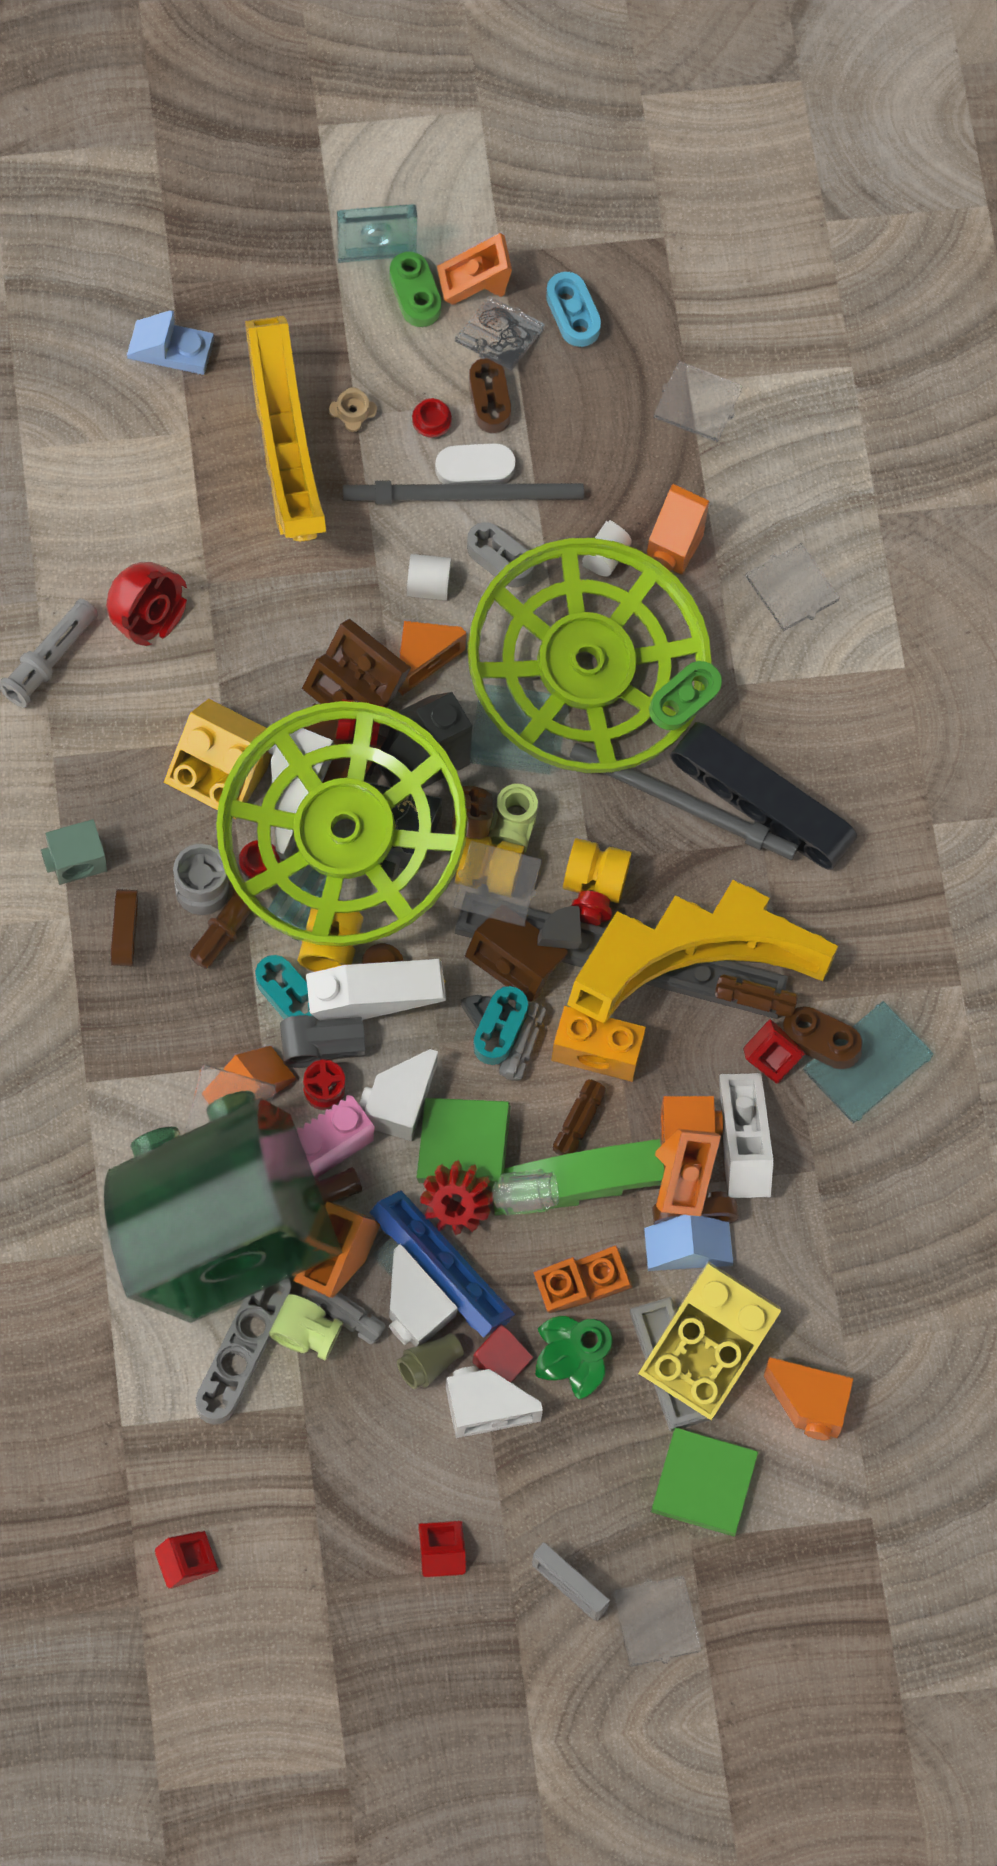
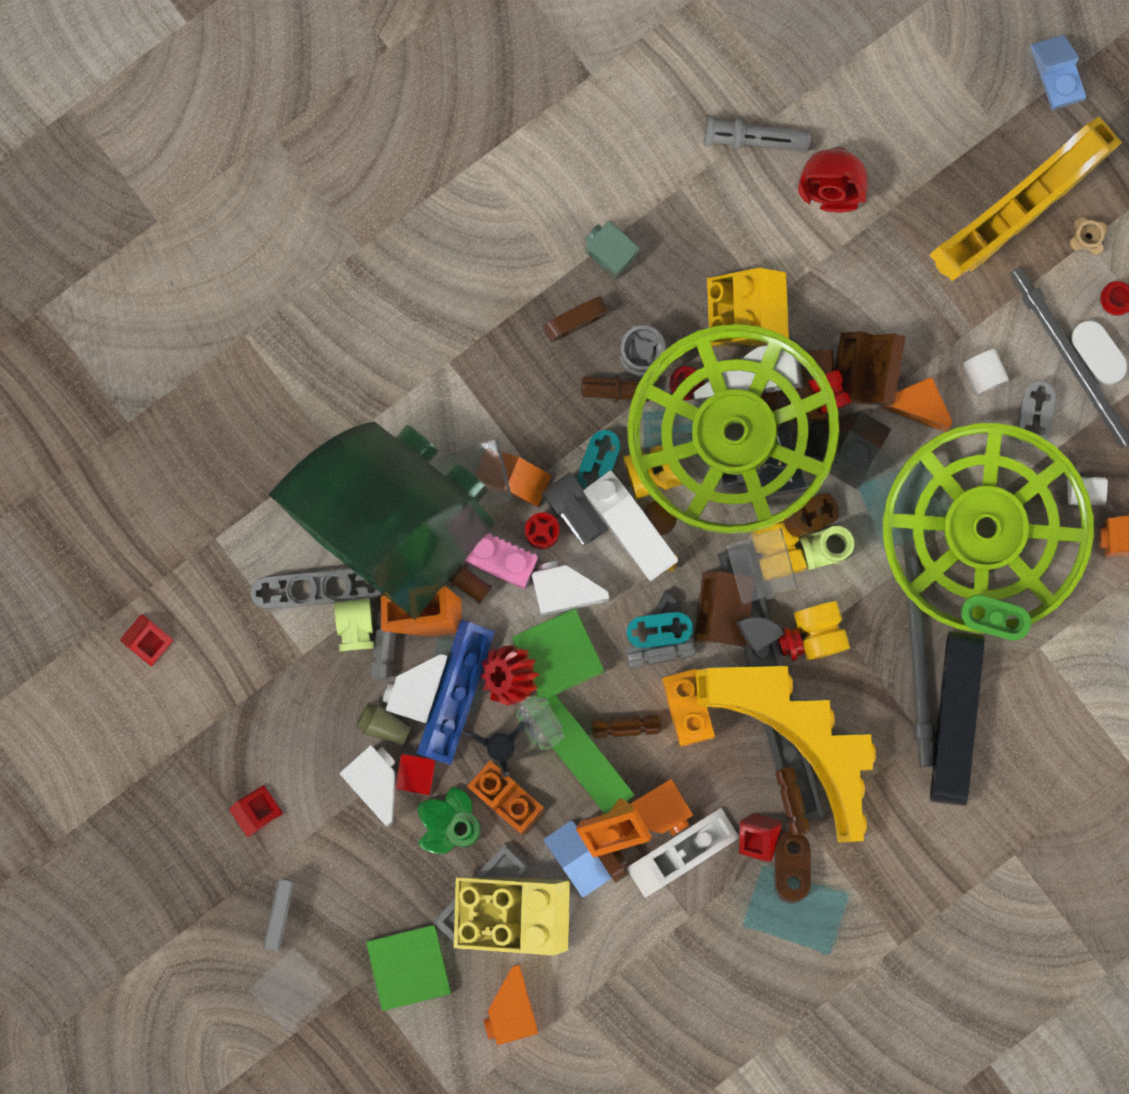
camera: 65 degrees right, 15 degrees up
(526, 1251) = (499, 746): none -> black plant

